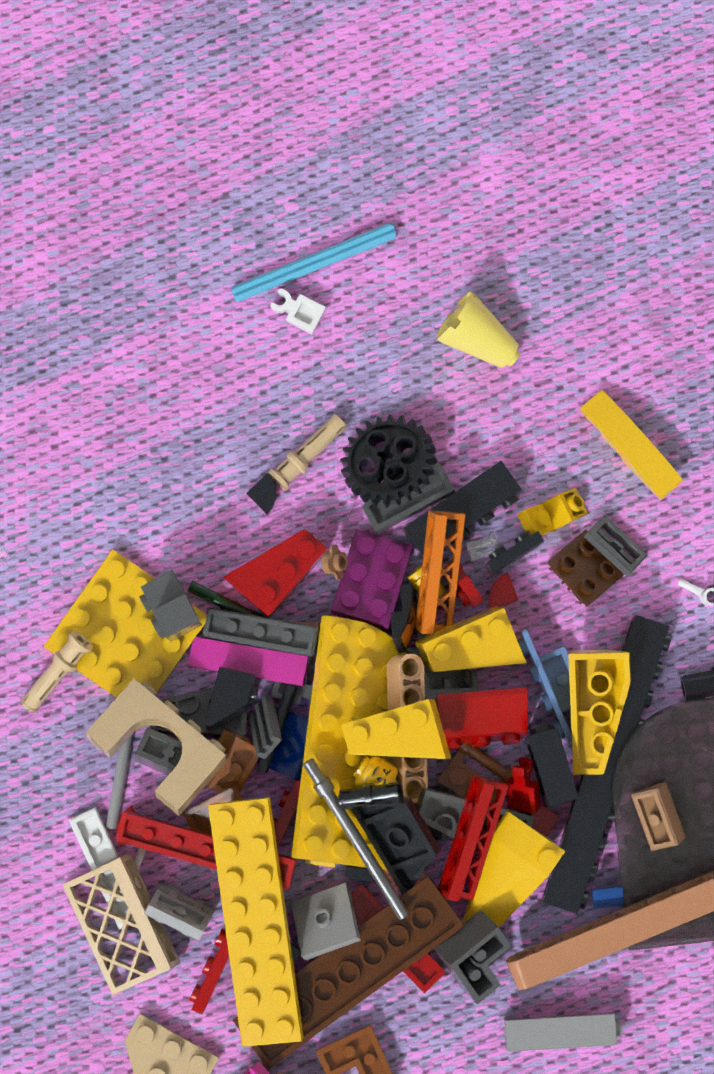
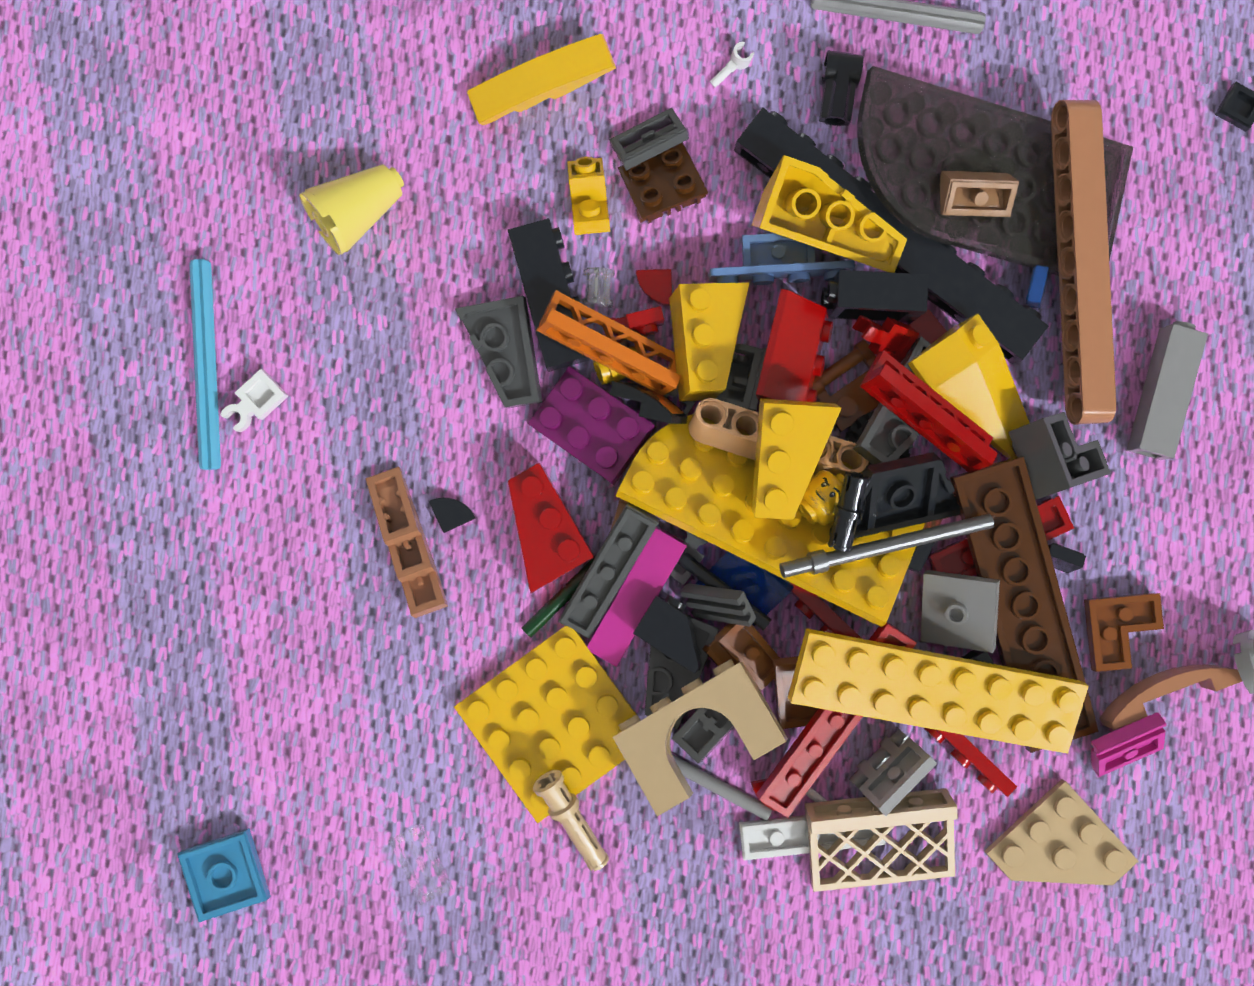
camera: 70 degrees left, 5 degrees up
(170, 606) = (544, 665): dark grey brick -> none
(229, 467) = (406, 542): none -> nougat slope
(298, 461) = (427, 461): tan pin -> none
(334, 562) = (558, 460): medium nougat plate -> none
(397, 992) = (1065, 558): none -> black tile
(412, 465) = (477, 331): black gear -> none
(524, 544) = (620, 265): black wing -> none

